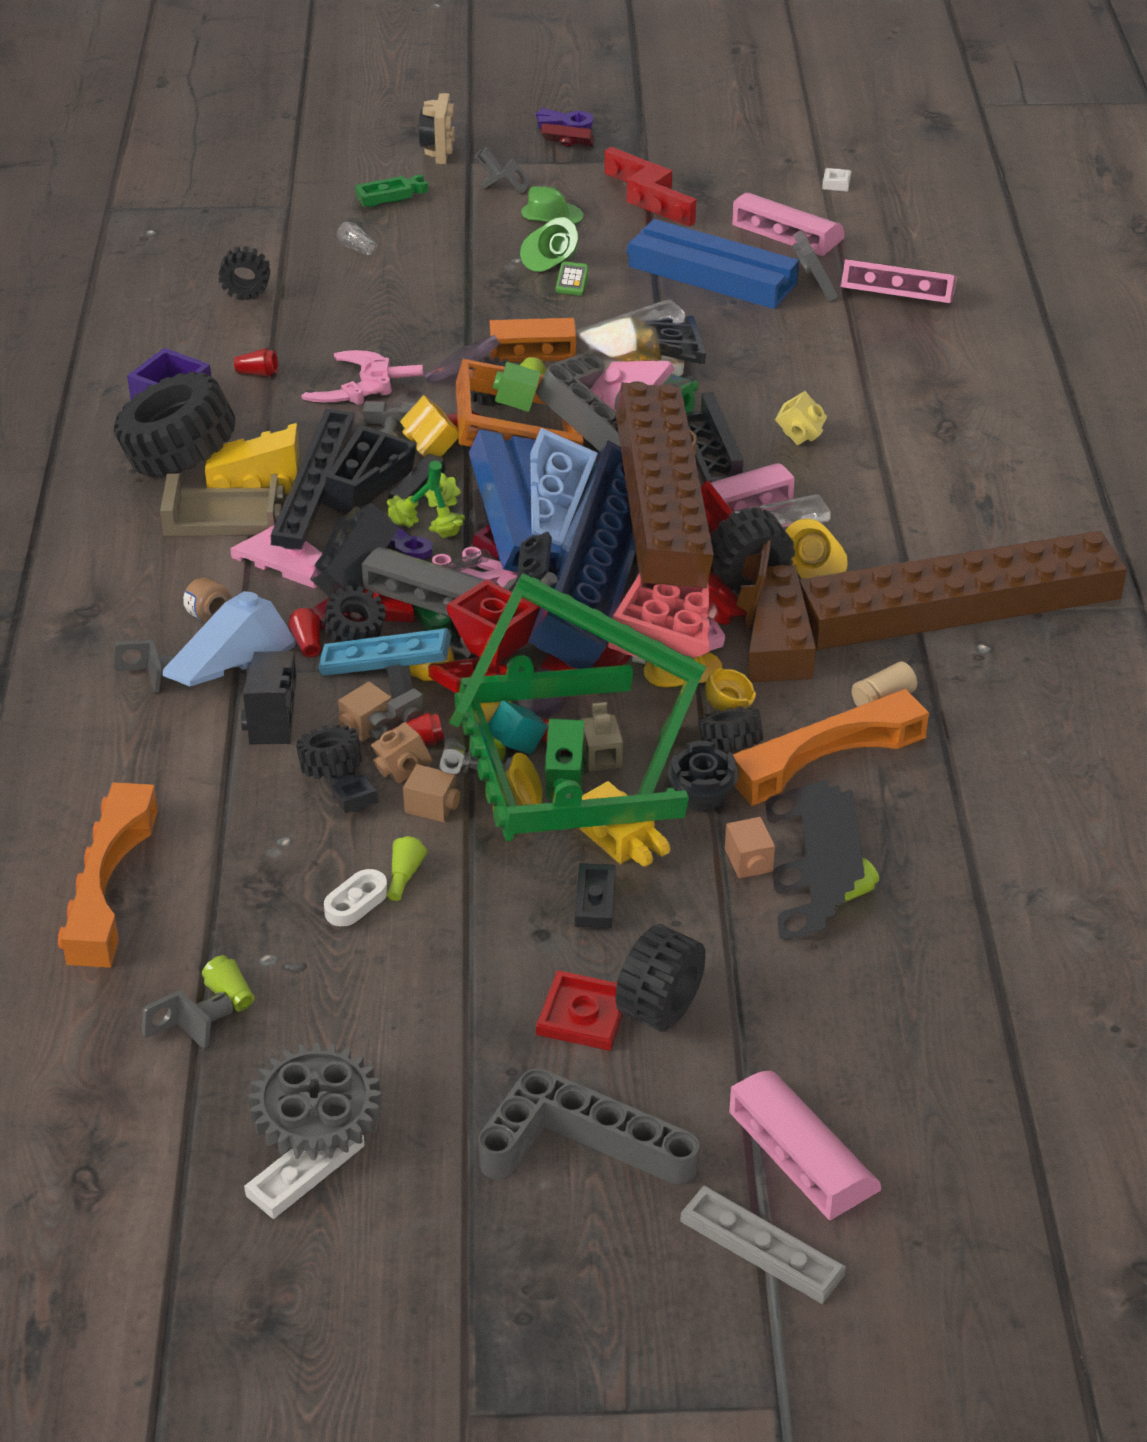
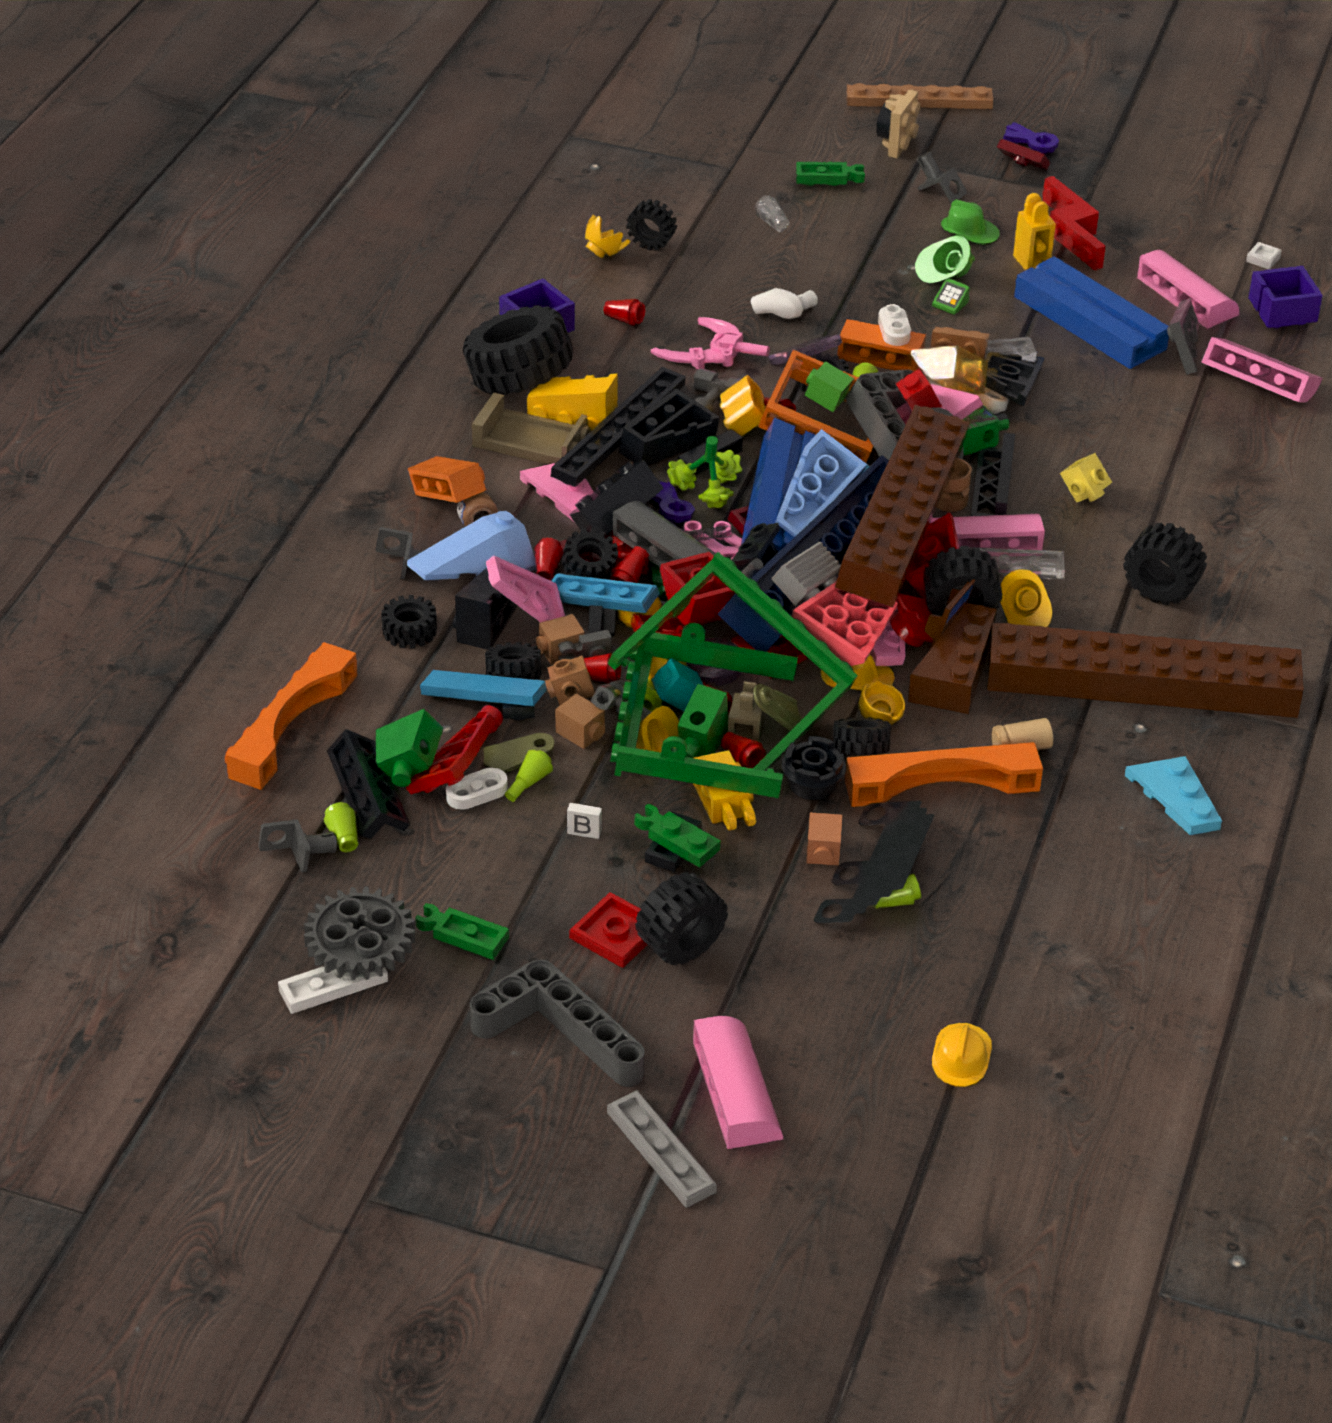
camera: 20 degrees right, 0 degrees up
(163, 574) = (447, 479): none -> orange brick
(189, 722) = (409, 633): none -> black tyre
(197, 300) = (603, 242): none -> yellow piece
(230, 927) = (365, 784): none -> black fence
(262, 872) = (407, 746): none -> green torso
(303, 894) = (457, 752): none -> red plate
(309, 785) = (483, 688): none -> dark azure tile
(310, 667) = (527, 590): none -> bright pink wing
(375, 846) = (511, 753): none -> olive piece
(401, 616) = (631, 566): none -> red cone
(413, 320) = (783, 303): none -> white arm
(422, 1061) = (463, 930): none -> green plate
(463, 99) = (928, 96): none -> medium nougat plate
(491, 899) = (584, 820): none -> white tile
(541, 315) = (894, 325): none -> white plate
(600, 315) = (969, 340): none -> medium nougat bracket
(601, 887) = (678, 835): none -> green plate
(607, 576) = (807, 574): none -> light grey brick
(608, 372) = (918, 391): none -> red brick
(621, 775) = (743, 750): none -> red cone
(626, 202) = (1033, 233): none -> yellow hinge
(632, 721) = (777, 705): none -> olive piece
(884, 210) = (1285, 296): none -> dark purple piece
(933, 461) = (1177, 550): none -> black tyre
(1009, 1037) = (961, 1054): none -> yellow piece
(1058, 698) = (1179, 791): none -> medium azure wing

